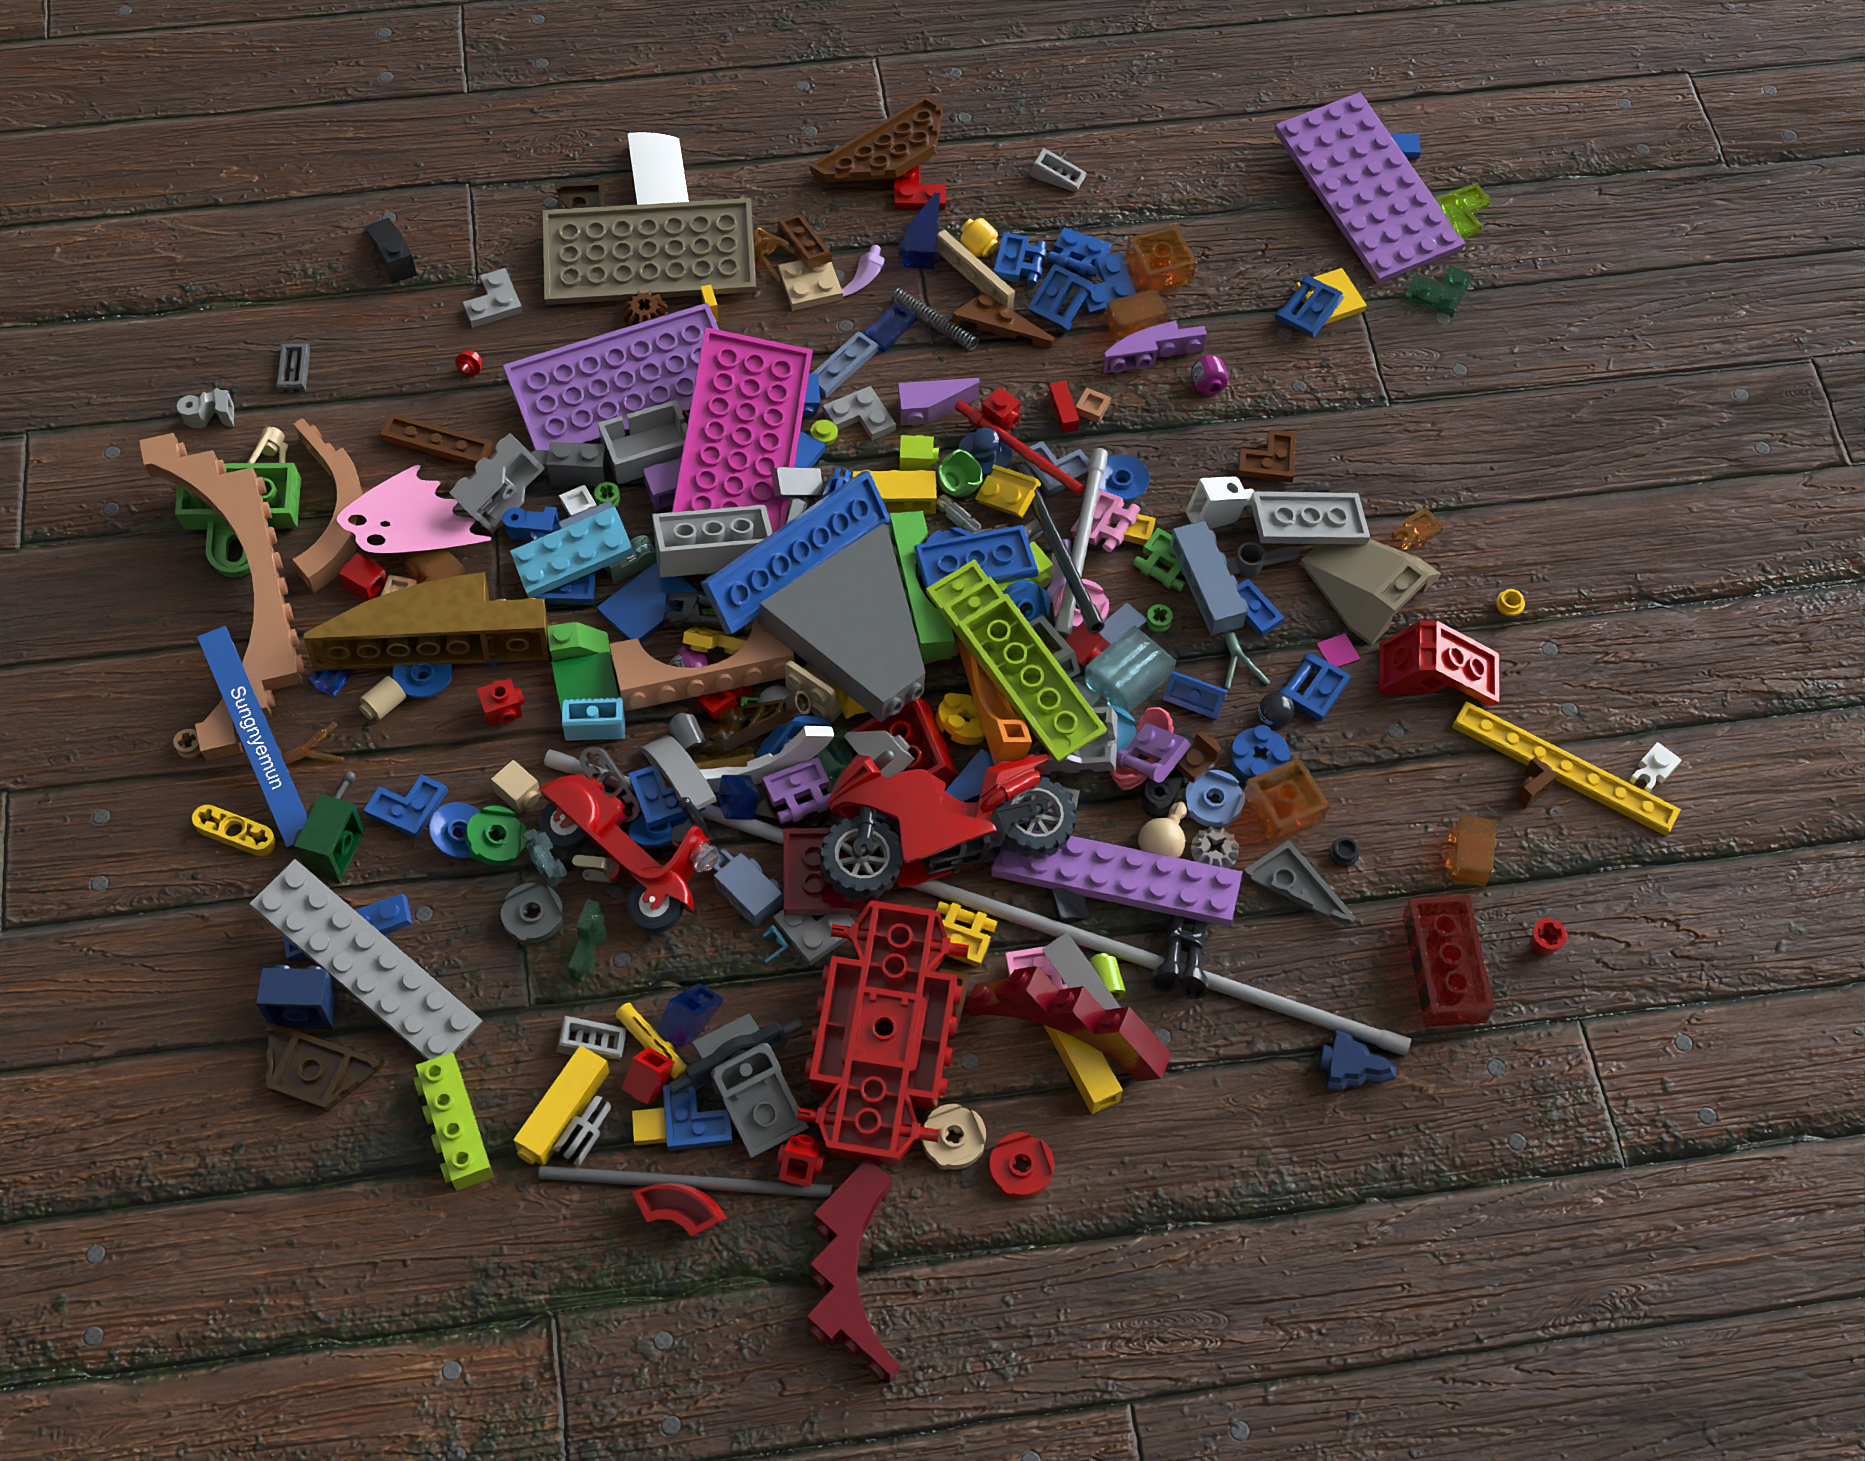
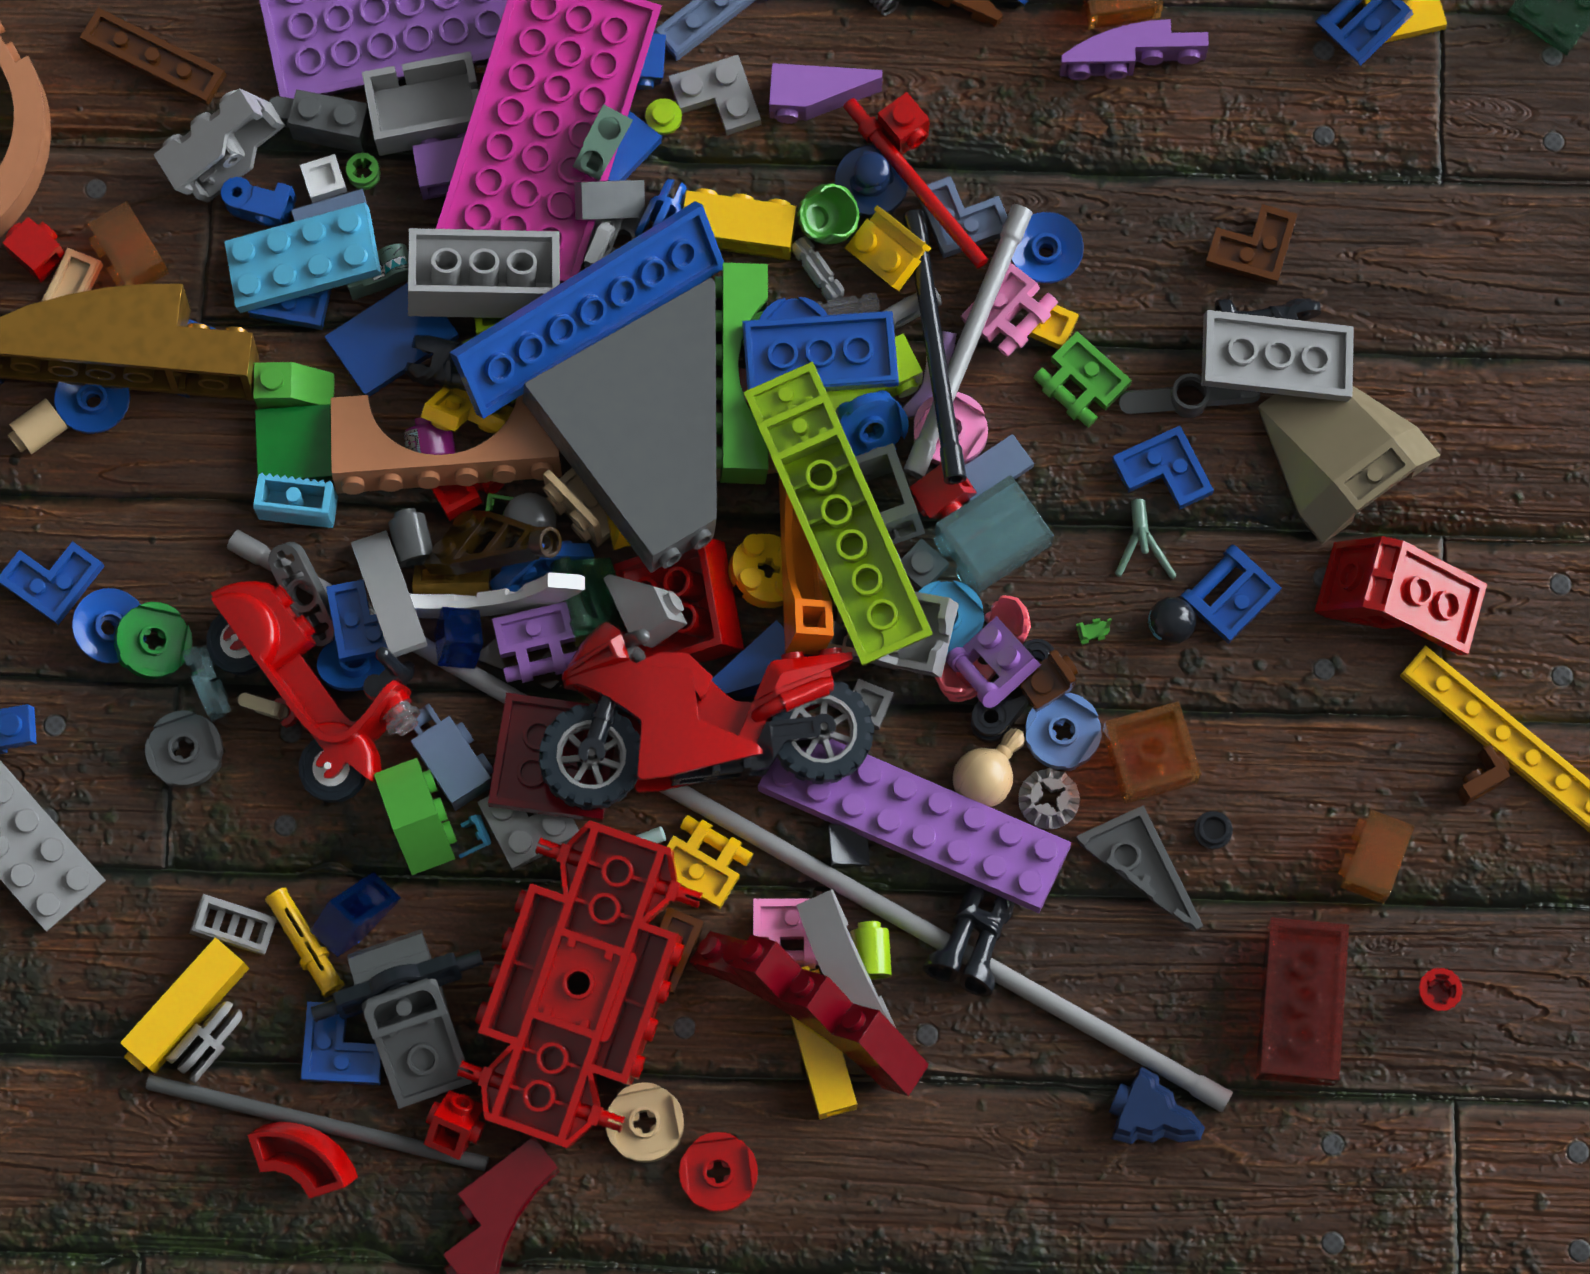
camera: 15 degrees right, 15 degrees up
(415, 517) = (112, 171): bright pink piece -> none
(454, 1122) = (54, 1004): lime brick -> none
(501, 702) = (183, 457): red brick -> none
(516, 787) = (188, 577): tan brick -> none
(591, 935) = (248, 791): clear green plate -> none
(647, 1075) = (291, 987): red brick -> none
(649, 1126) = (284, 1047): yellow tile -> none
(728, 929) = (416, 815): none -> bright green brick
(786, 439) = (602, 142): none -> sand green leg
(917, 453) = (780, 171): lime brick -> none
(1063, 406) = (992, 124): red piece -> none
(1092, 405) = (1031, 128): nougat plate -> none
(1160, 610) = (1054, 450): bright green bush -> none
(1194, 695) = (1070, 582): blue plate -> none
(1209, 375) = (1200, 106): magenta head -> none
(1209, 577) = (1123, 421): sand blue brick -> none
(1218, 501) = (1165, 307): white torso -> none
(1220, 727) = (1097, 629): none -> bright green piece
(1253, 740) = (1145, 658): blue plate -> none
(1338, 650) = (1277, 544): dark pink sticker -> none
(1418, 527) = (1430, 381): clear orange plate -> none
(1513, 597) = (1528, 502): yellow plate -> none

